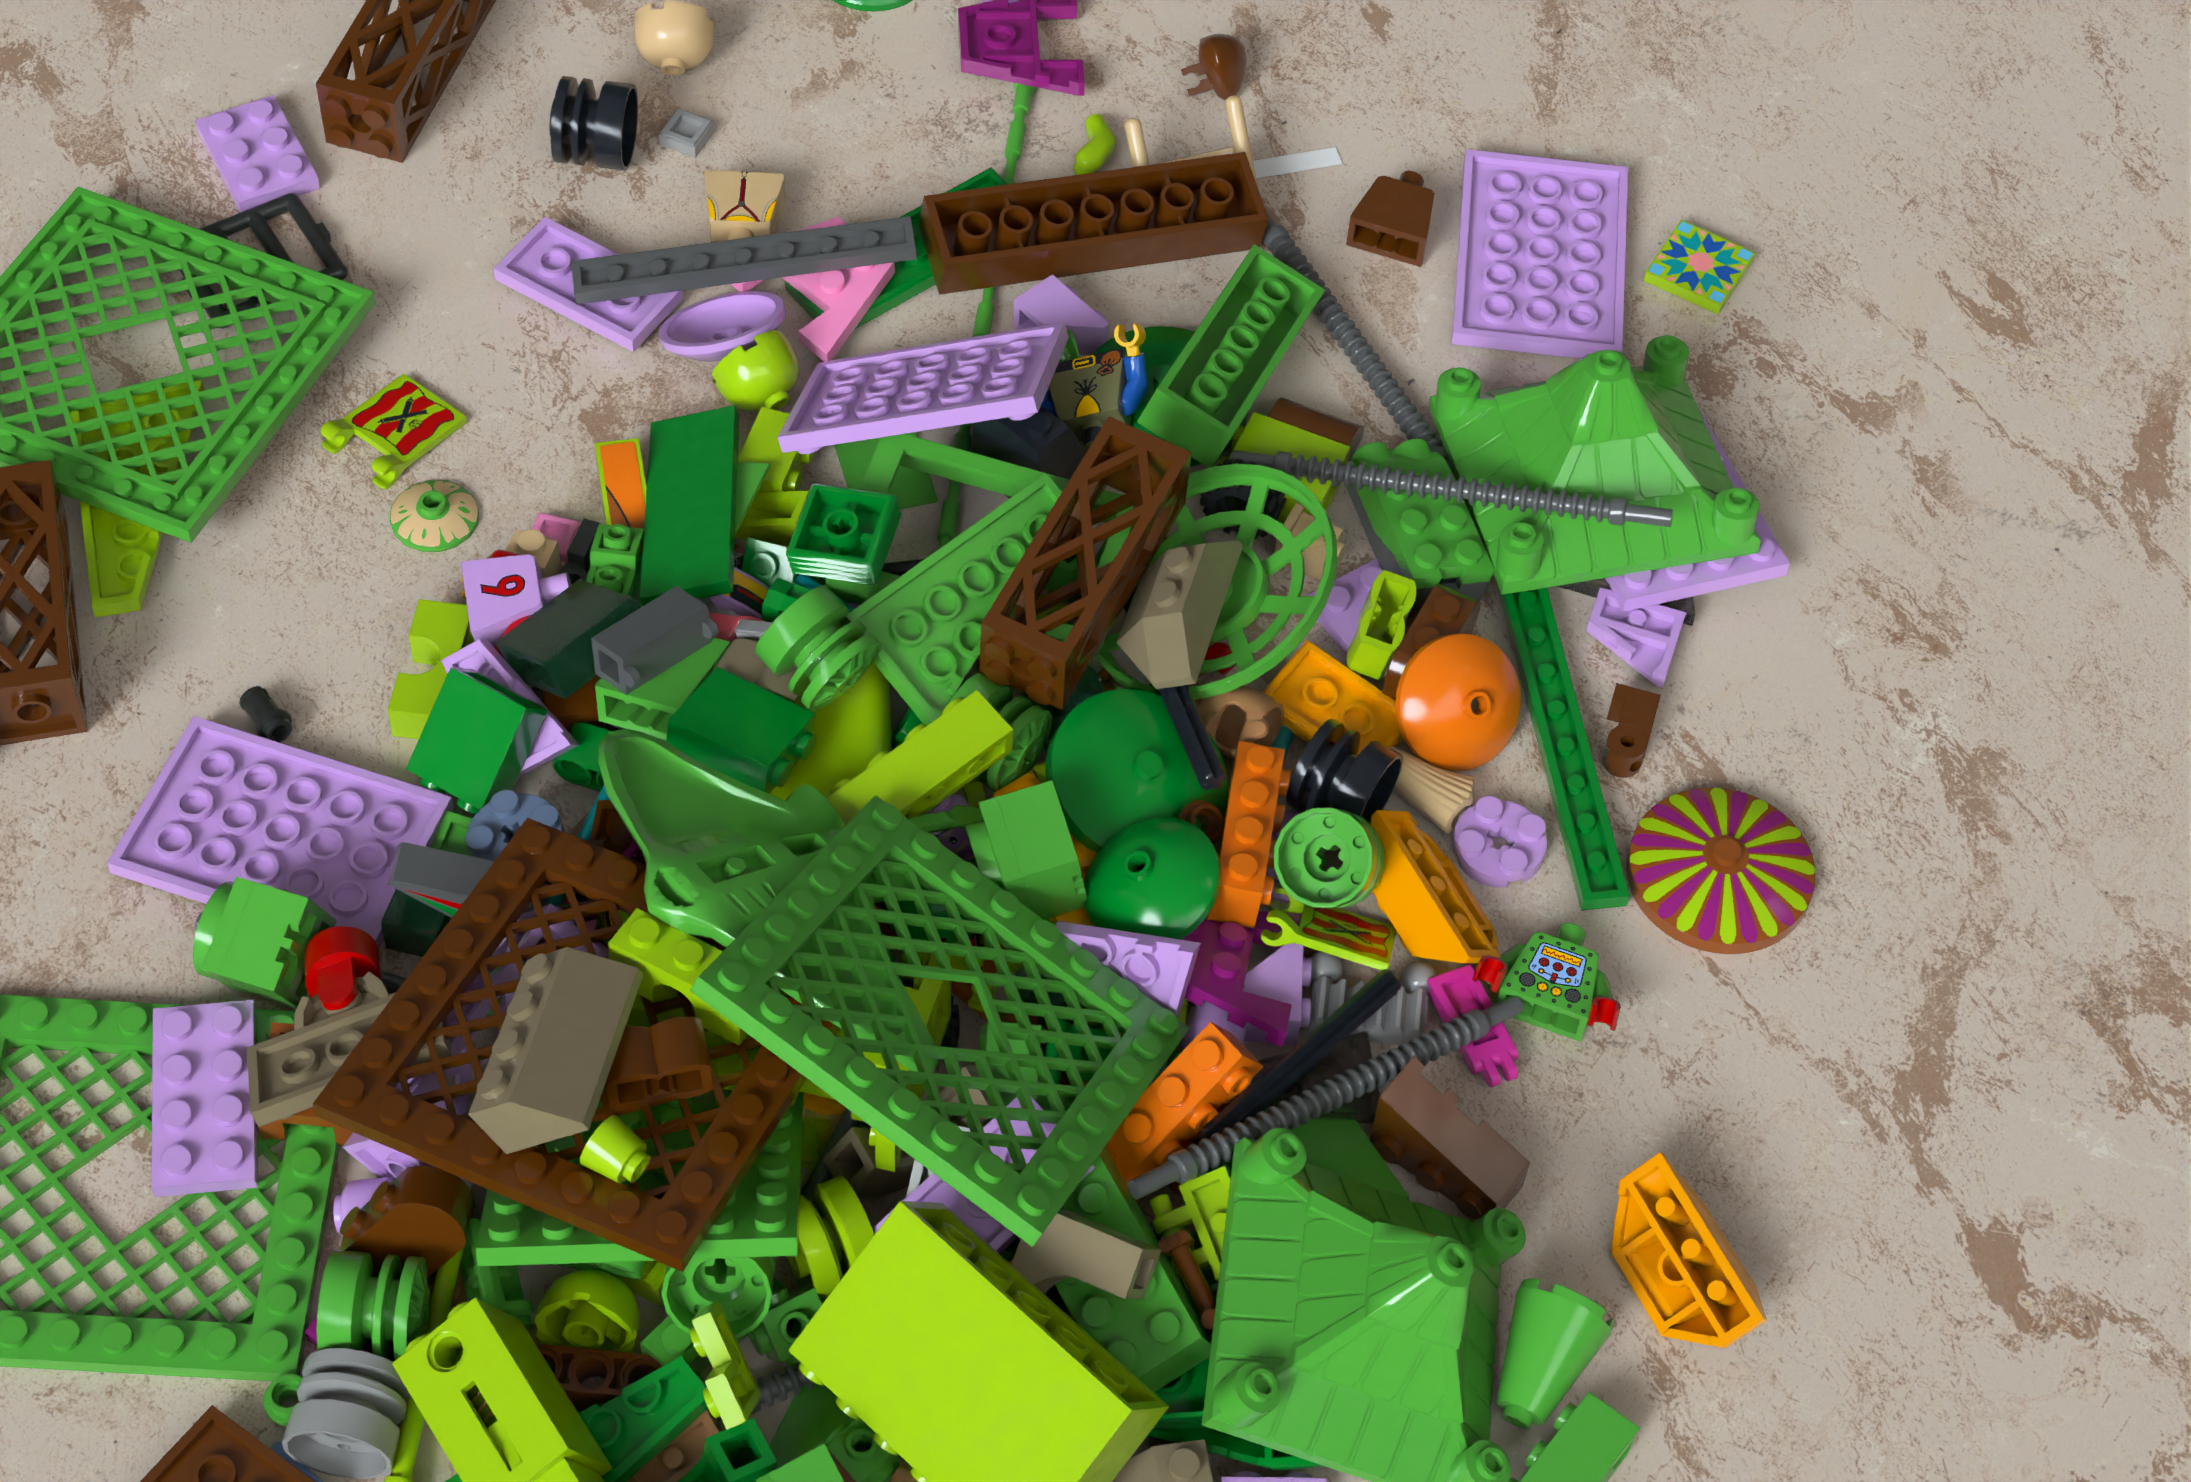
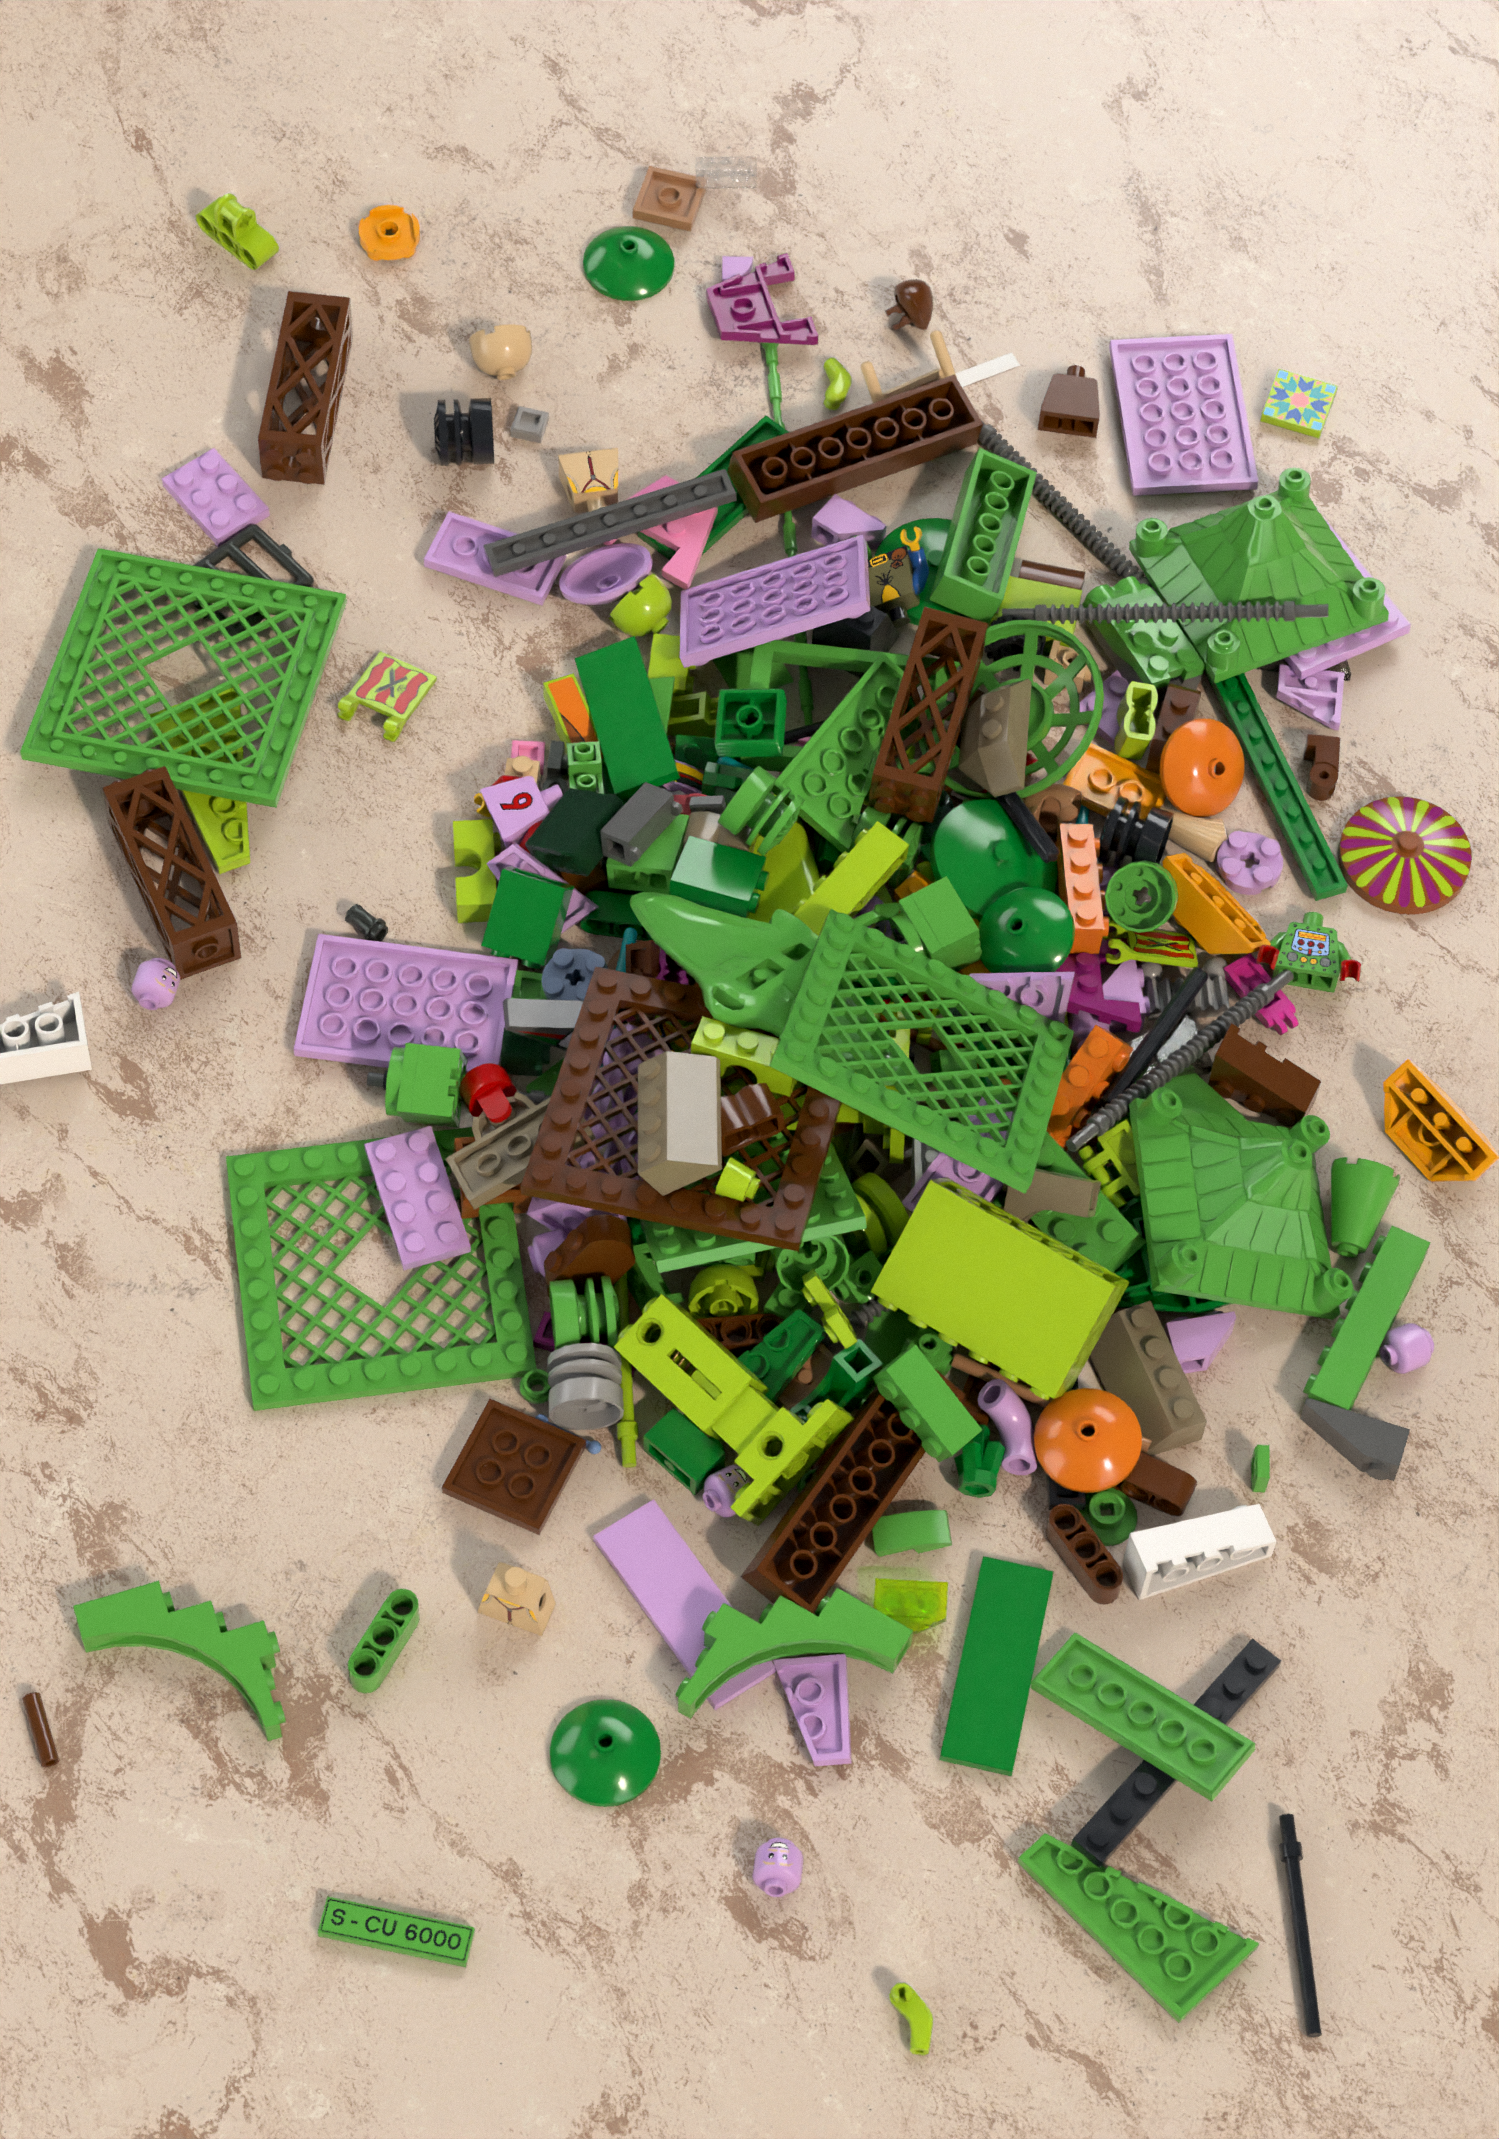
camera: 10 degrees left, 5 degrees up
(434, 528) = (435, 765): tan dish -> none
(1179, 1249) = (1107, 1180): reddish brown piece -> none
(1208, 815) = (1048, 880): reddish brown plate -> none

